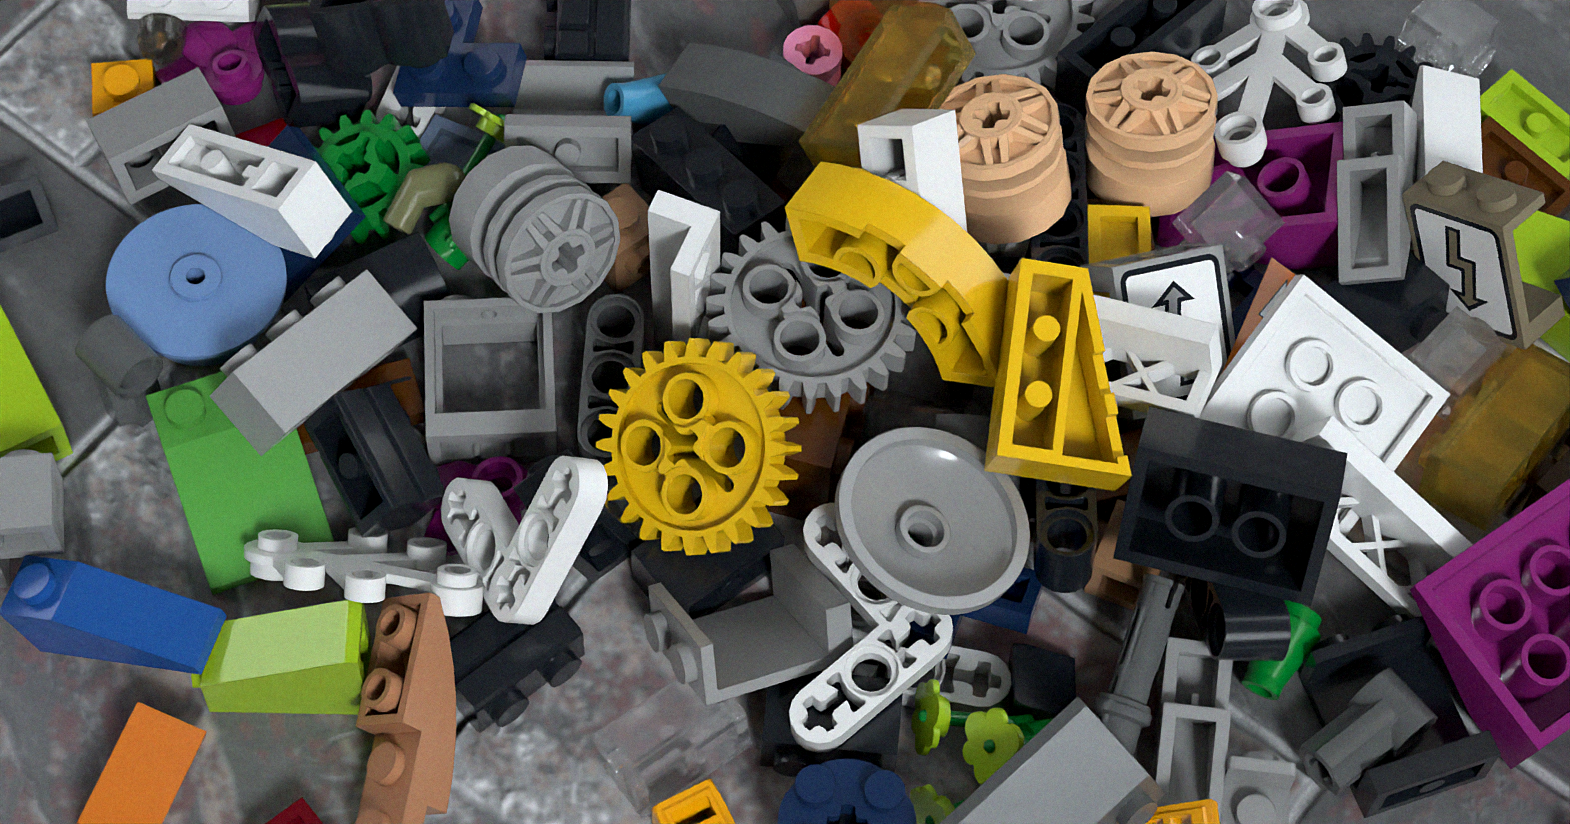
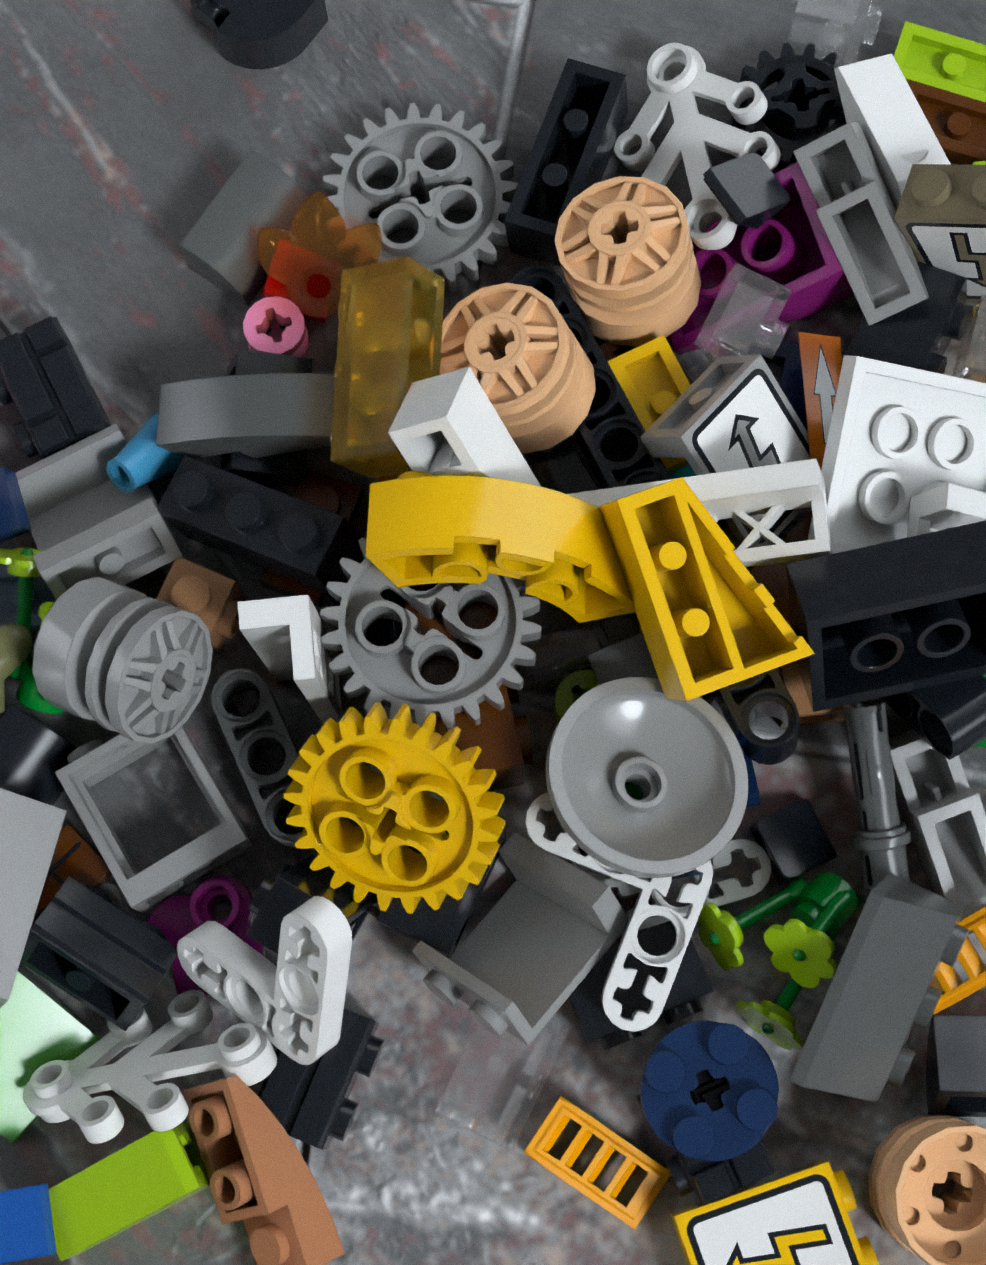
camera: 20 degrees left, 15 degrees up
(1285, 121) = (747, 190): none -> slope

